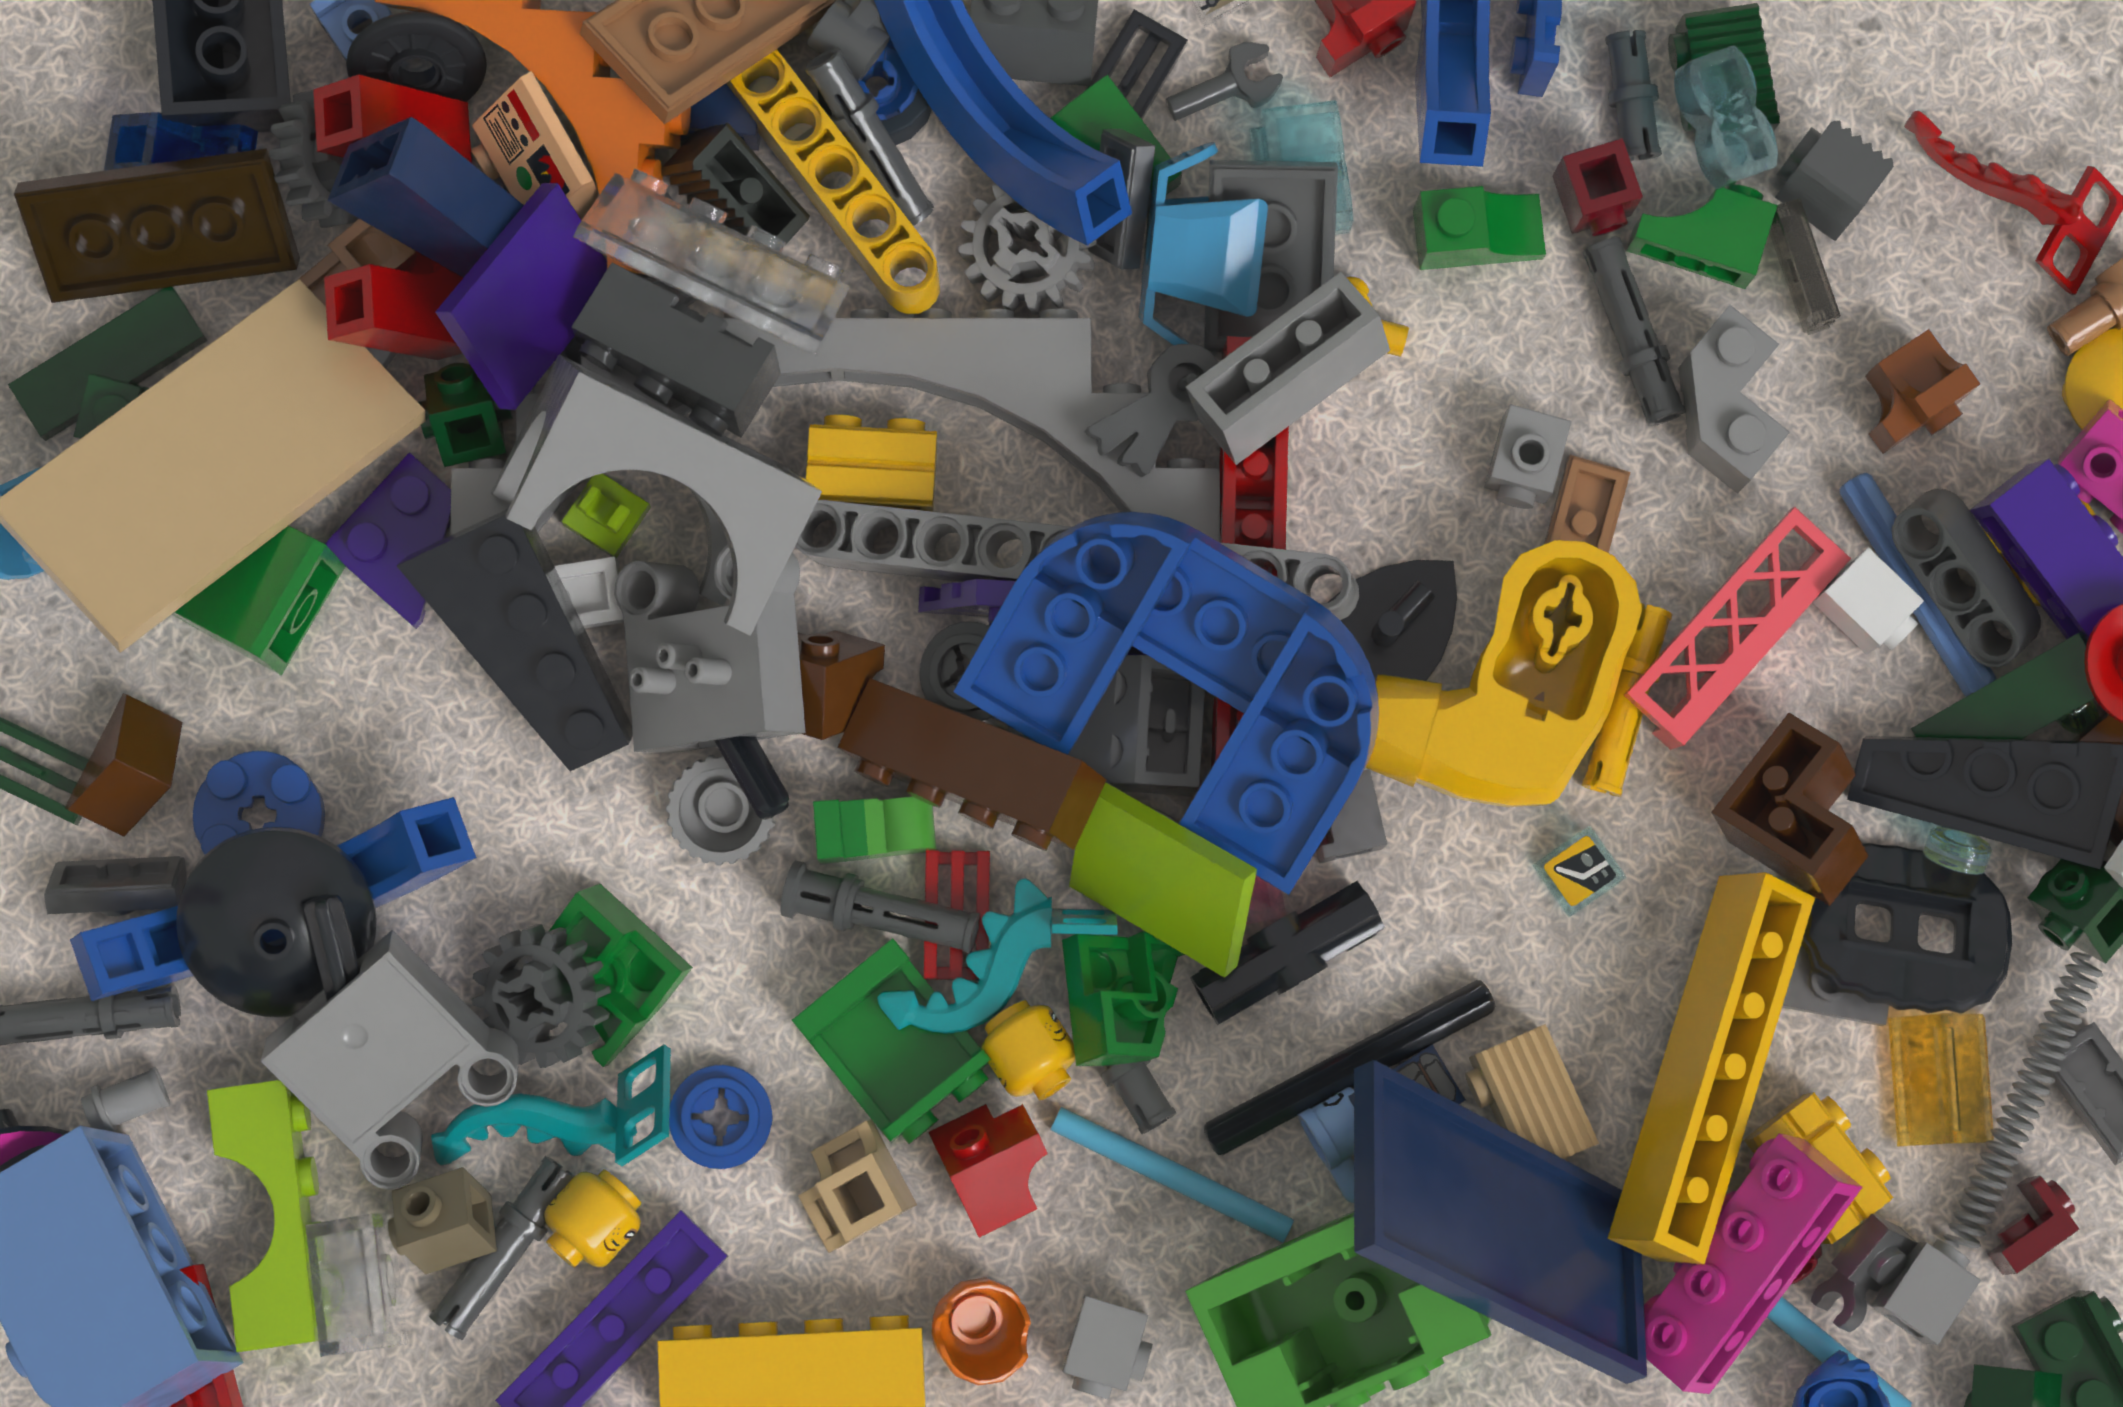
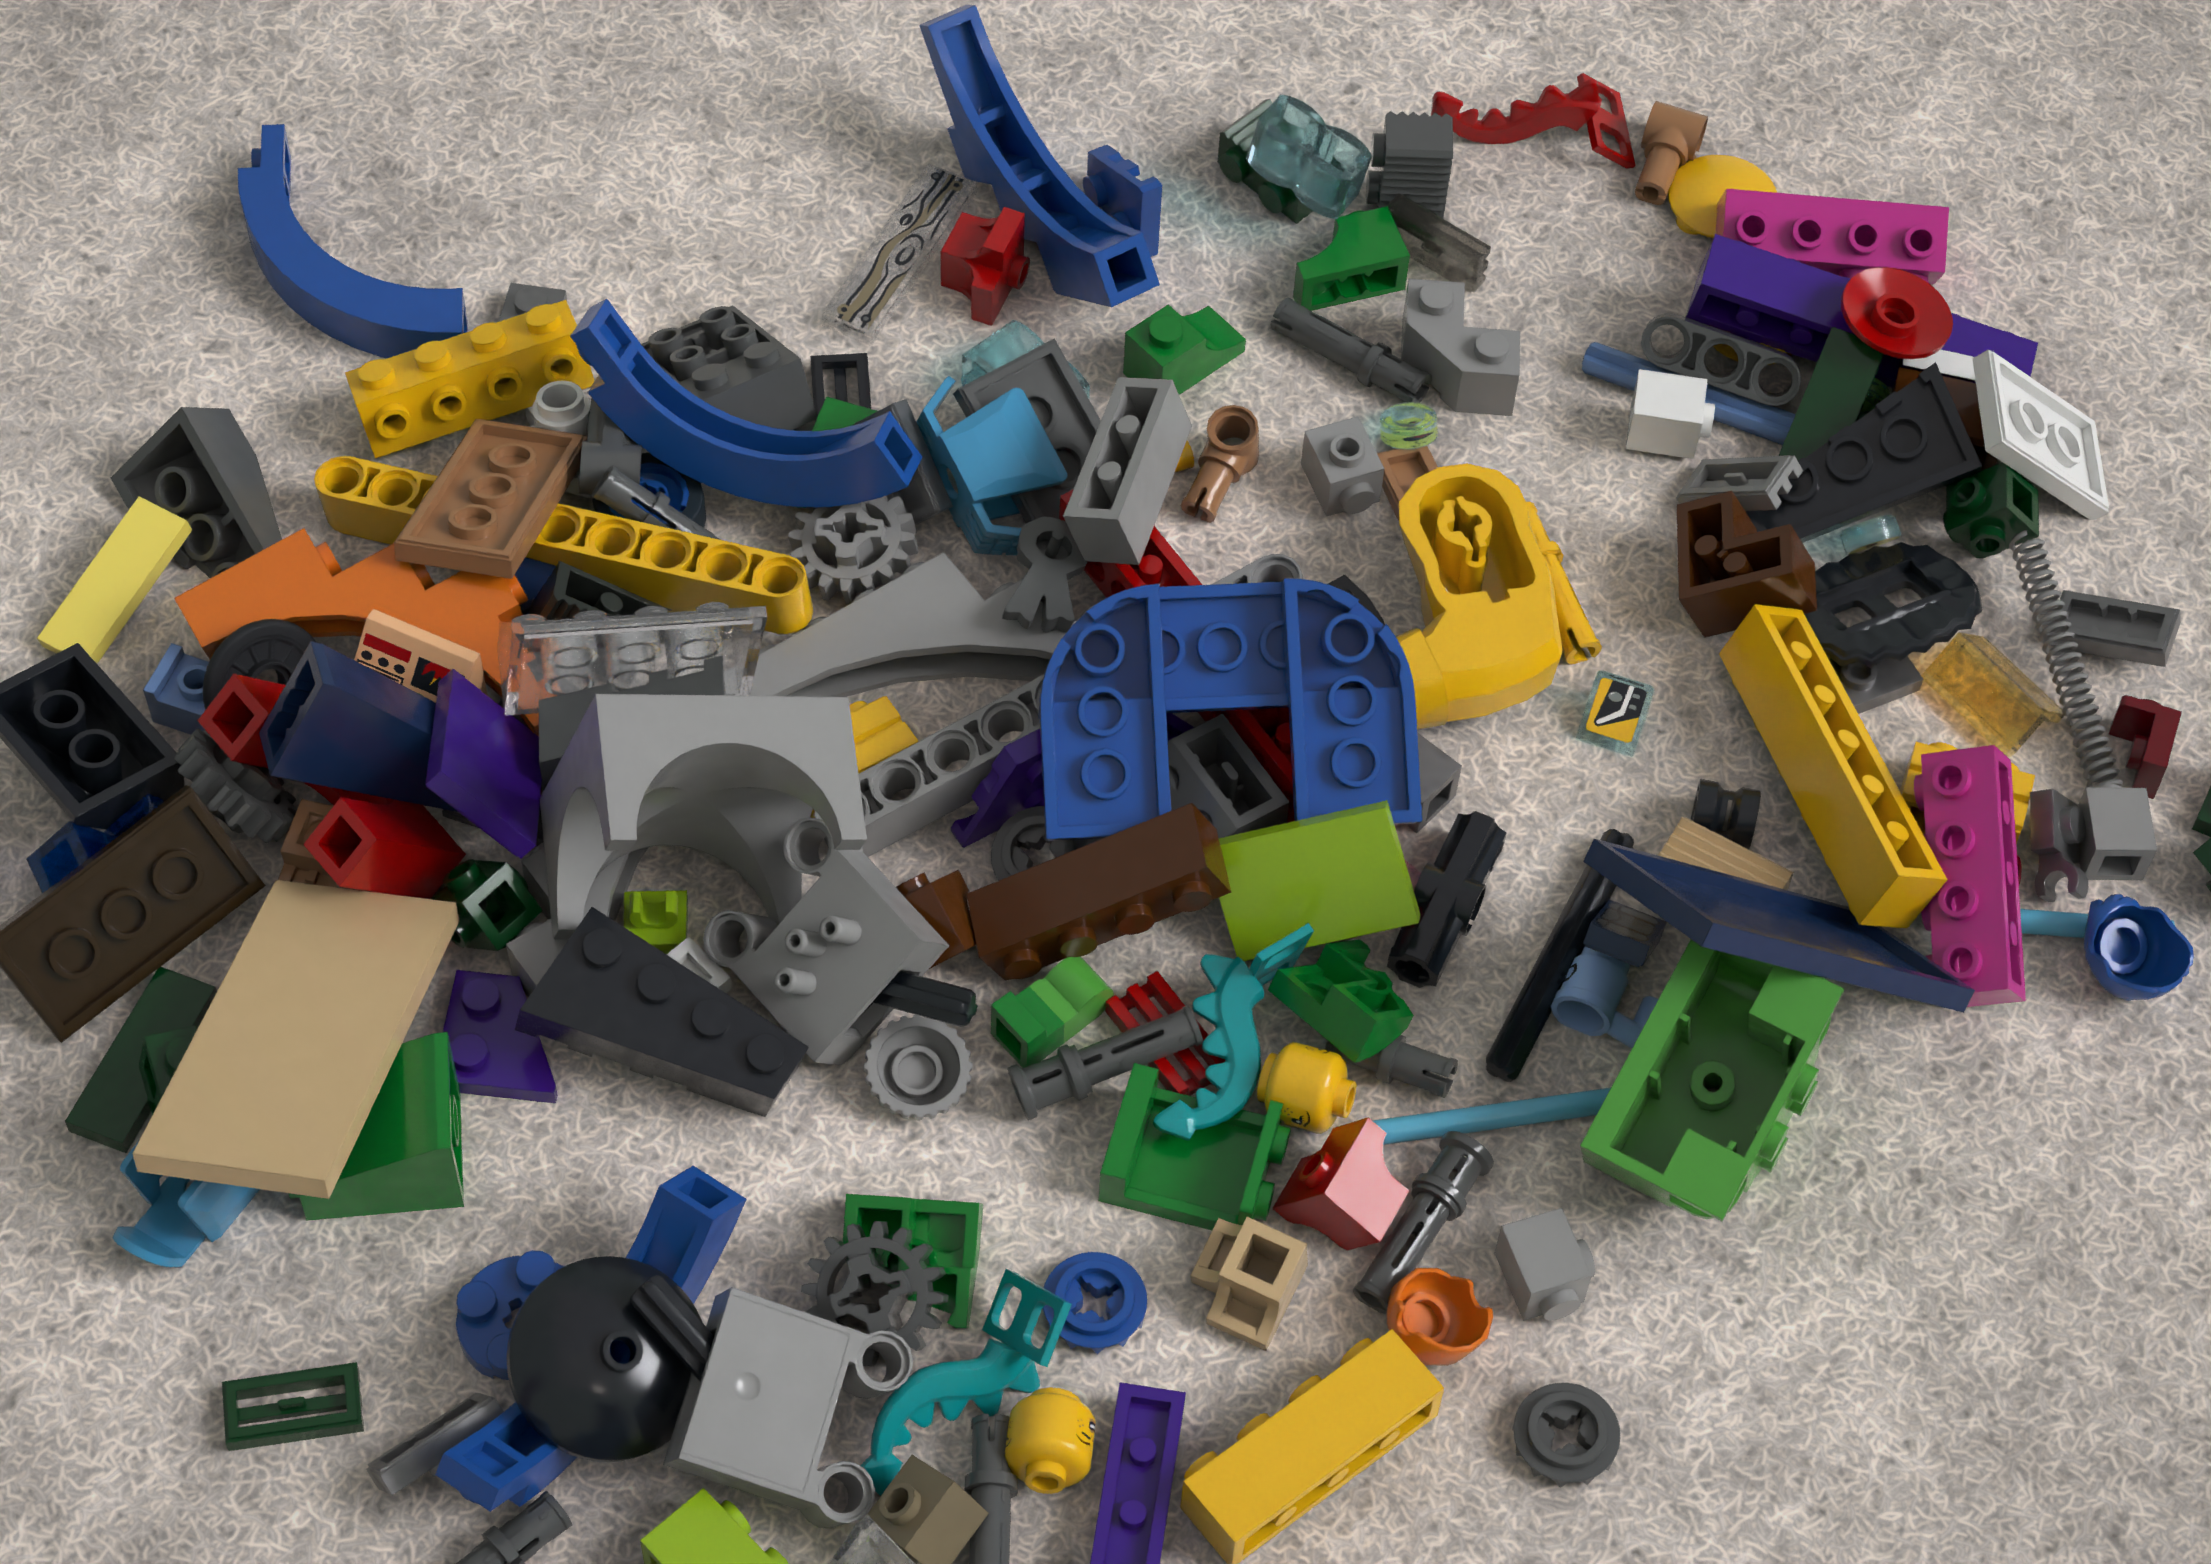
camera: 30 degrees left, 25 degrees down
(128, 767) = (381, 1349): reddish brown slope -> none
(1067, 1221) = (1437, 1195): none -> dark grey pin
(1230, 83) = (922, 363): dark grey bar -> none
(1416, 378) = (1221, 462): none -> medium nougat pin
(1583, 1027) = (1711, 808): none -> black wheel
(1598, 188) = (1249, 269): dark red brick -> none
(1625, 448) = (1408, 426): none -> clear light blue tile
(1633, 94) = (1224, 210): dark grey pin -> none
(1752, 644) = (1602, 480): coral fence -> none
(1891, 754) = (1752, 480): none -> light grey tile
(1918, 389) = (1583, 269): dark orange brick -> none

